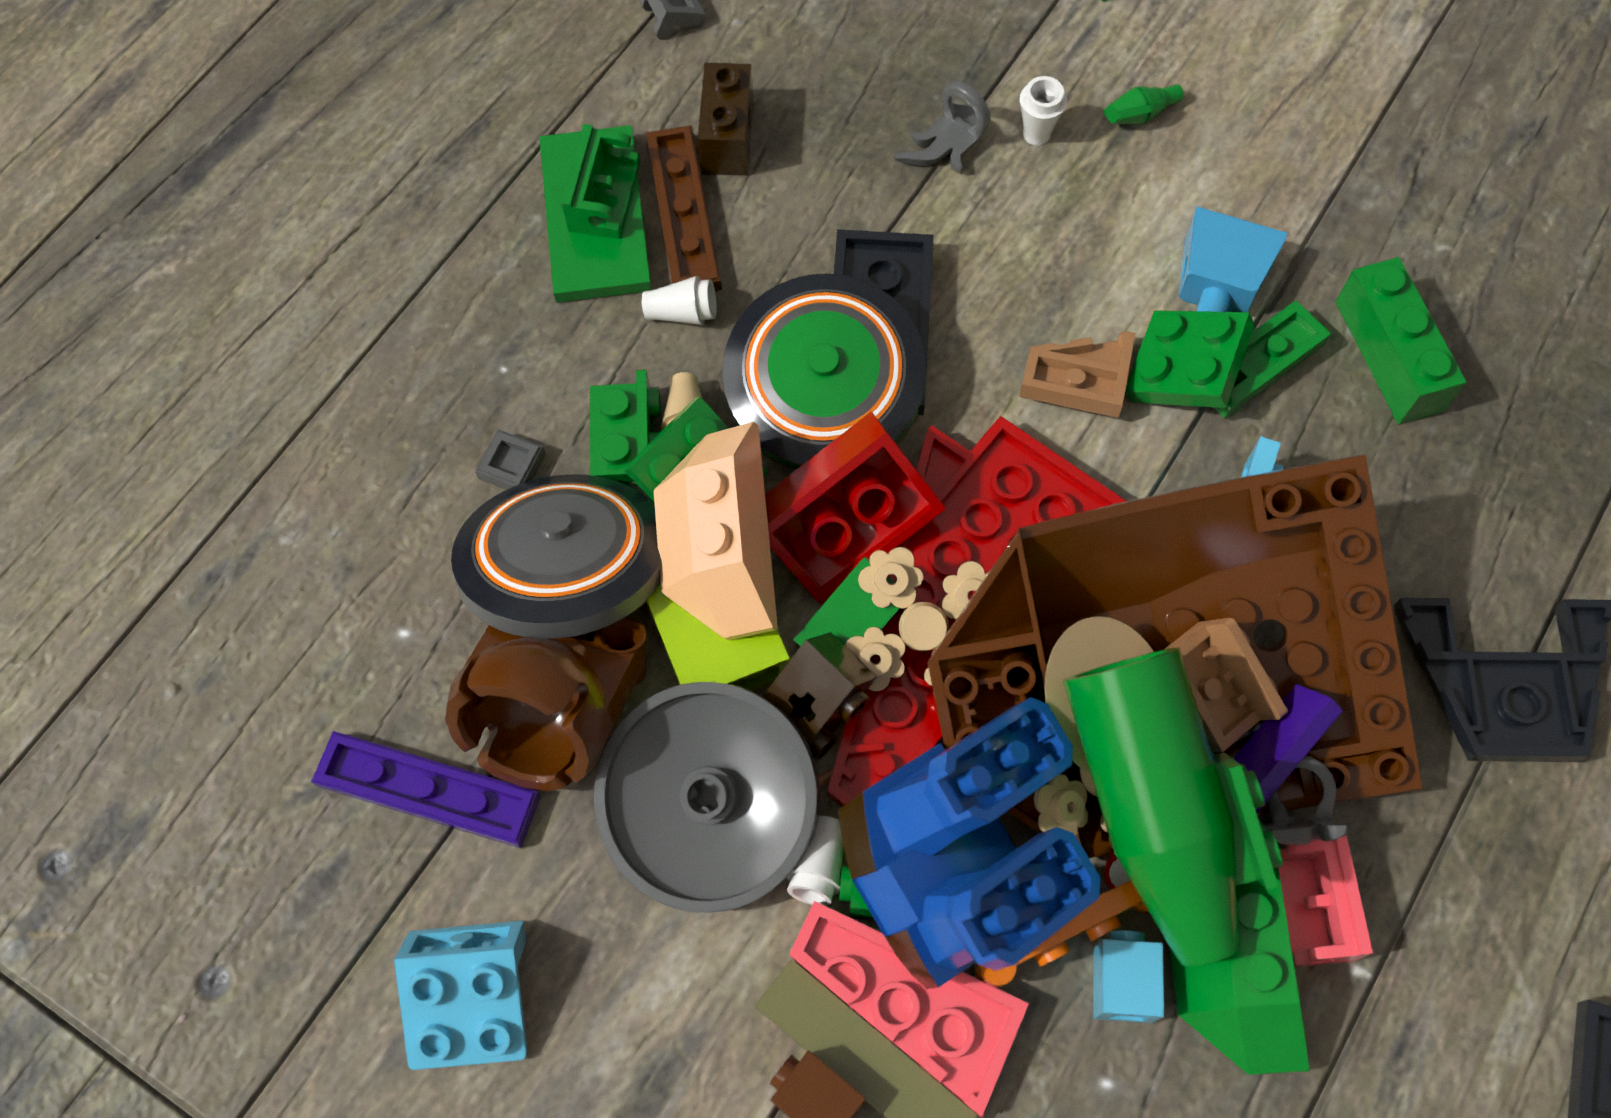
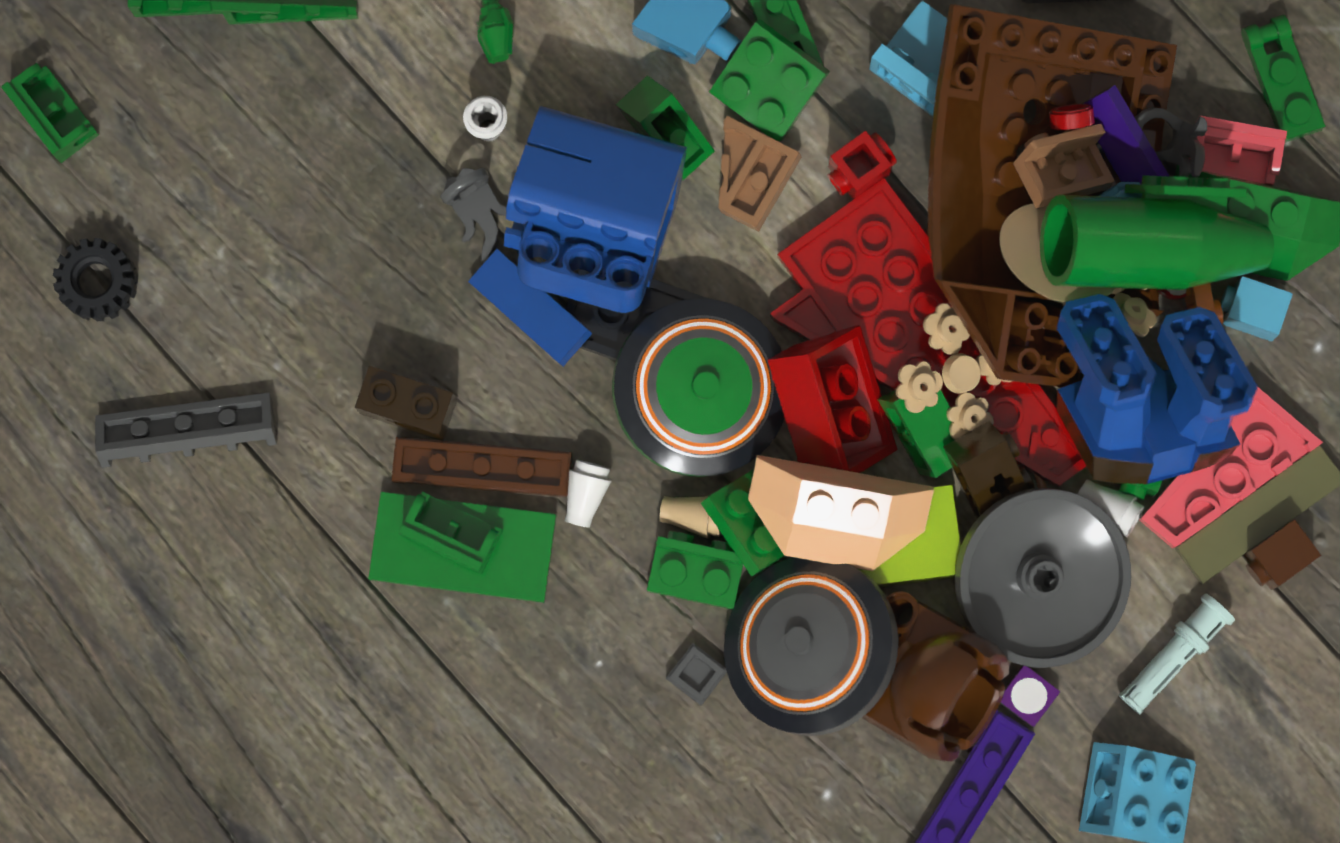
camera: 70 degrees left, 15 degrees up
(562, 826) = (1029, 696): none -> tile
(678, 1006) = (1189, 639): none -> light aqua pin
(859, 200) = (530, 308): none -> blue tile
(972, 210) = (592, 204): none -> blue piece
(1098, 277) = (659, 115): none -> green slope
(1133, 464) = (860, 164): none -> red brick
(1282, 672) = (1071, 116): none -> red tile
(1433, 943) = (1283, 79): none -> green plate

